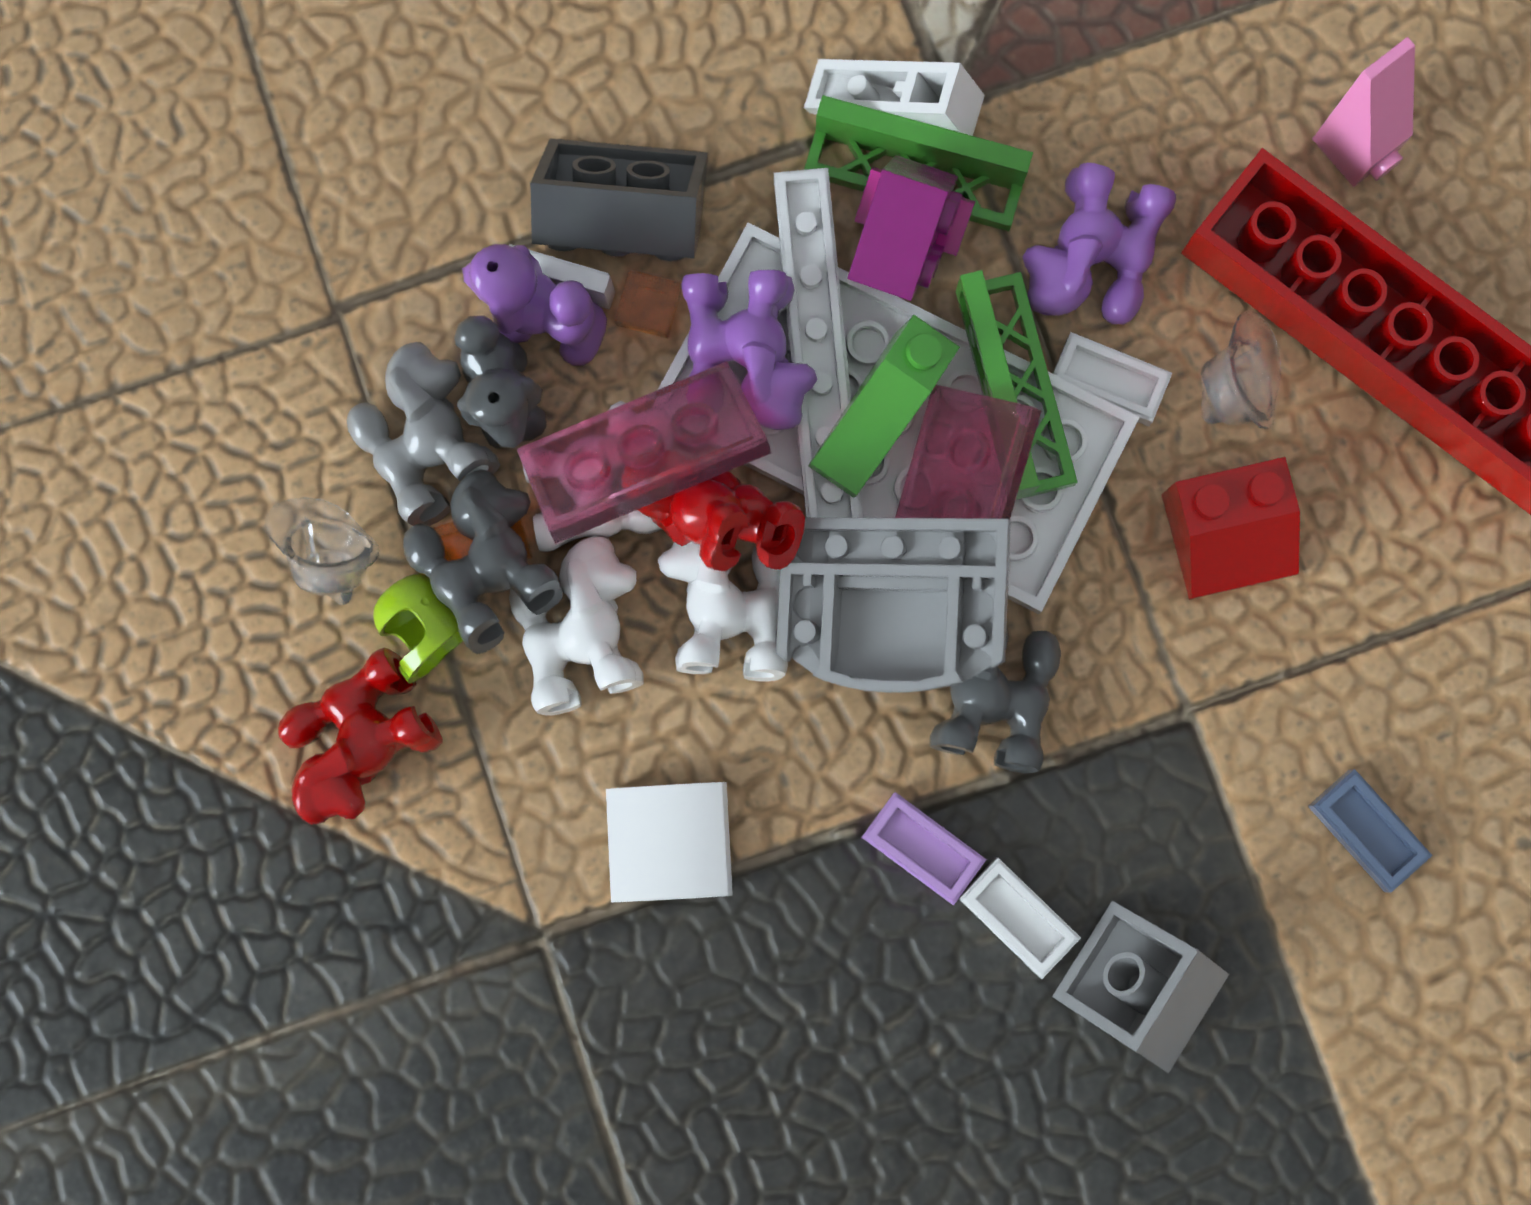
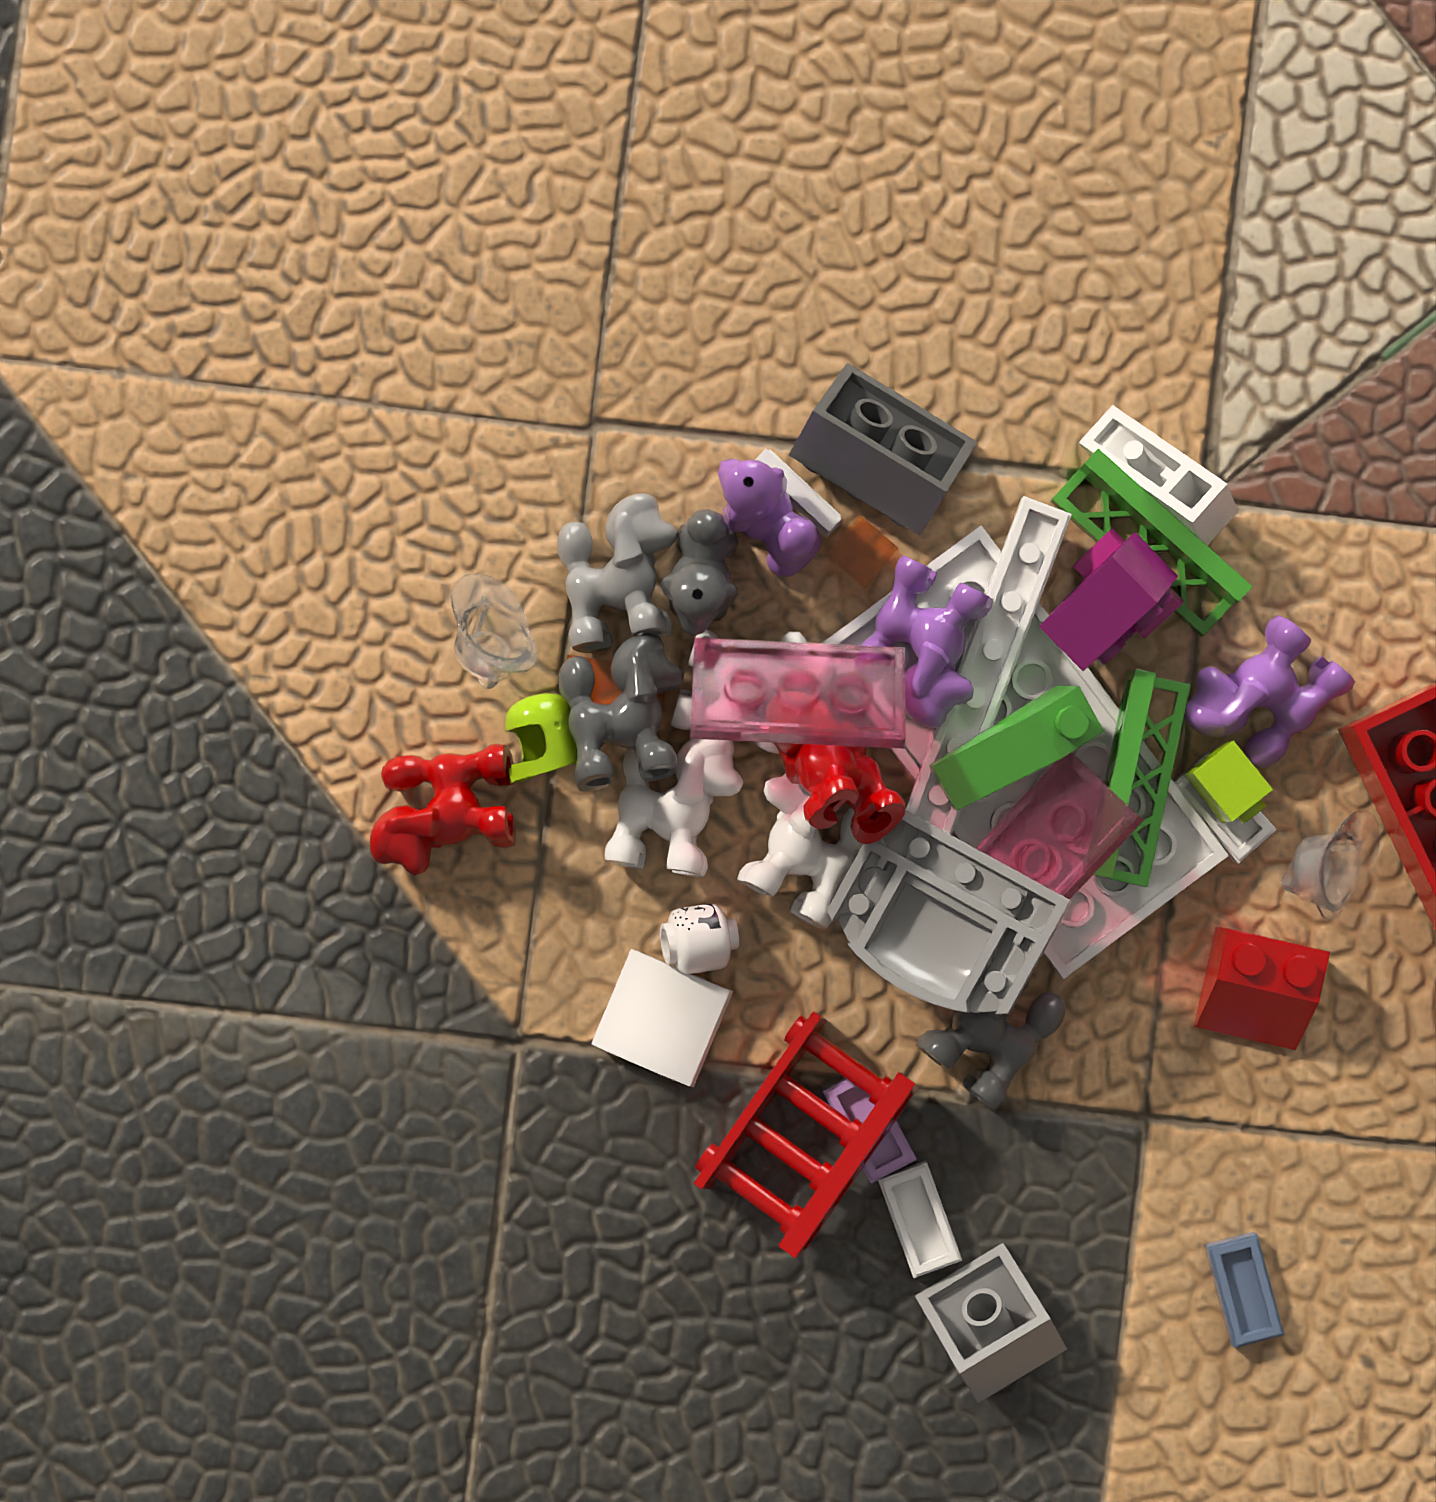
camera: 15 degrees right, 5 degrees up
(667, 746) = (698, 939): none -> white head
(908, 922) = (827, 1180): none -> red fence
(1106, 346) = (1229, 783): none -> lime brick

